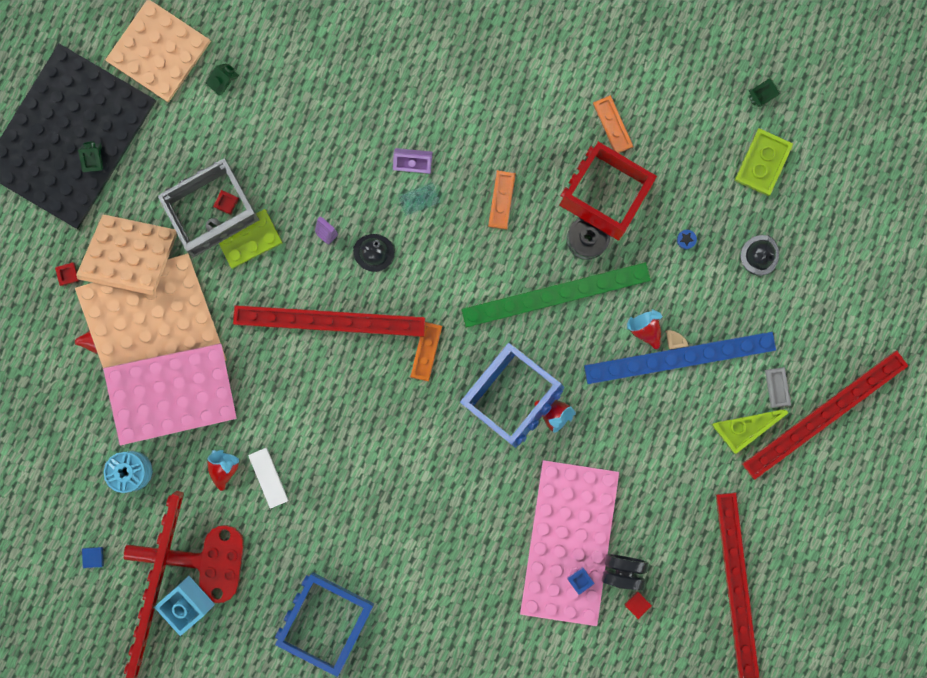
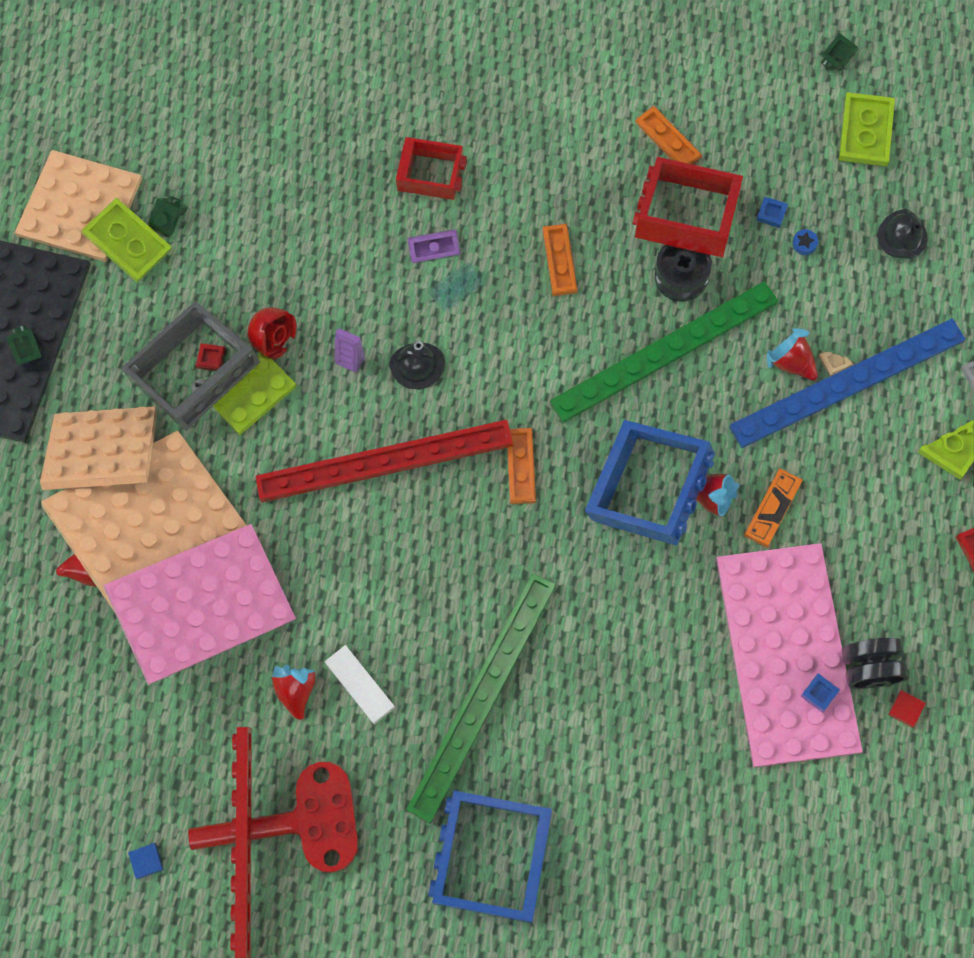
camera: 15 degrees left, 15 degrees down
(67, 274) = (24, 500): red tile -> none
(137, 466) = (173, 738): medium azure wheel -> none
(184, 605) = (291, 884): medium azure brick -> none
(185, 92) = (126, 240): none -> lime plate
(272, 197) = (271, 327): none -> red cylinder
(349, 512) = (481, 698): none -> green plate
(410, 89) = (430, 149): none -> red window
(594, 435) = (773, 508): none -> orange tile
(670, 208) = (772, 212): none -> blue tile

